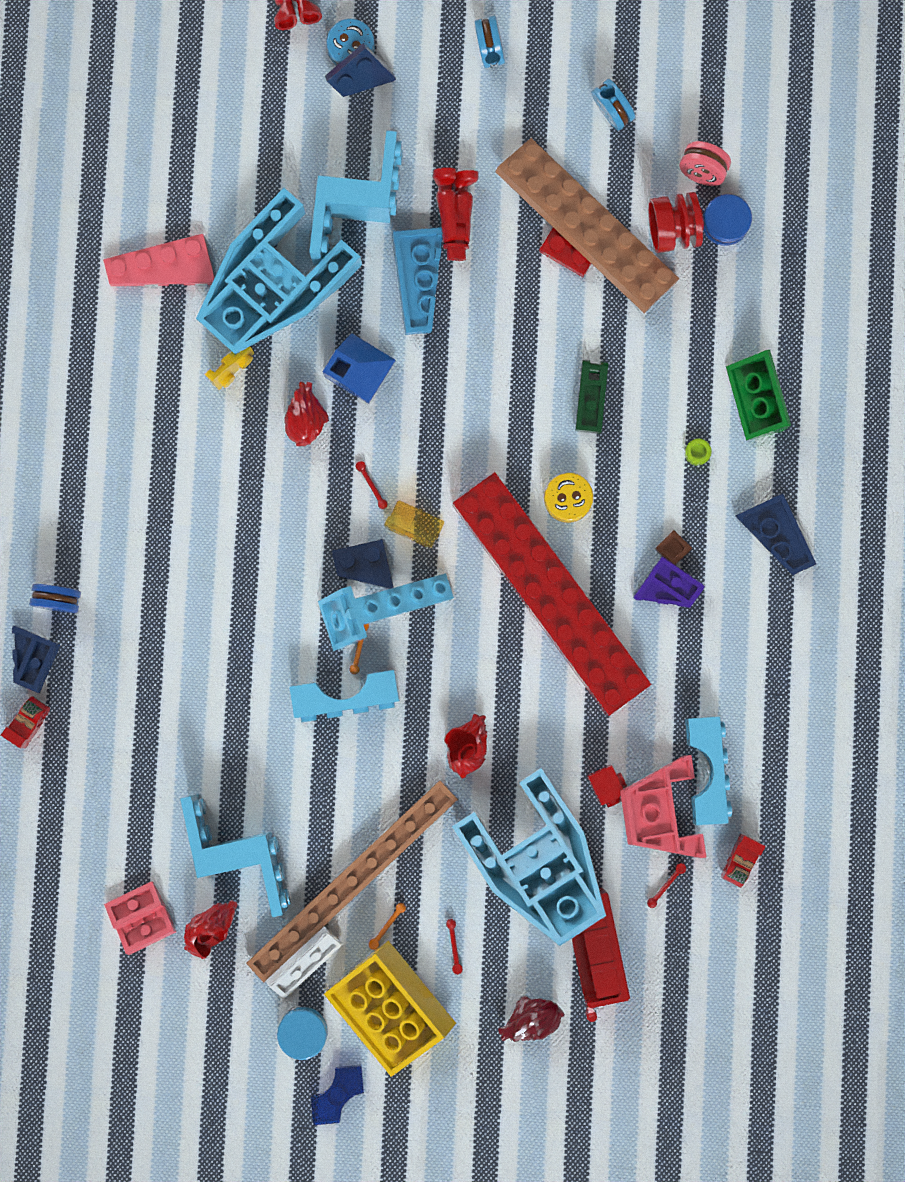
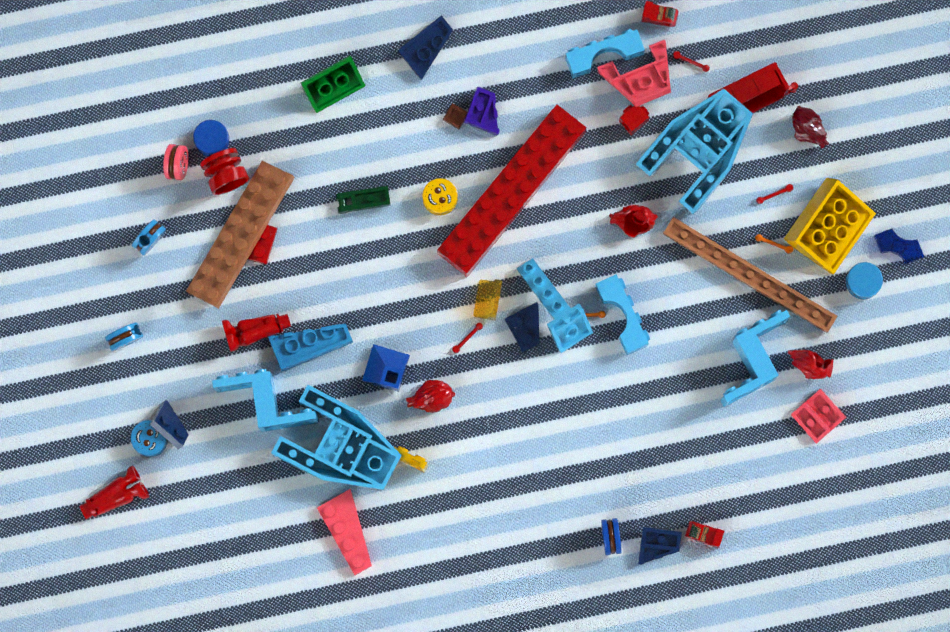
camera: 105 degrees left, 5 degrees down
(304, 962) = (815, 292): white tile -> none
(698, 452) = (382, 116): lime tile -> none

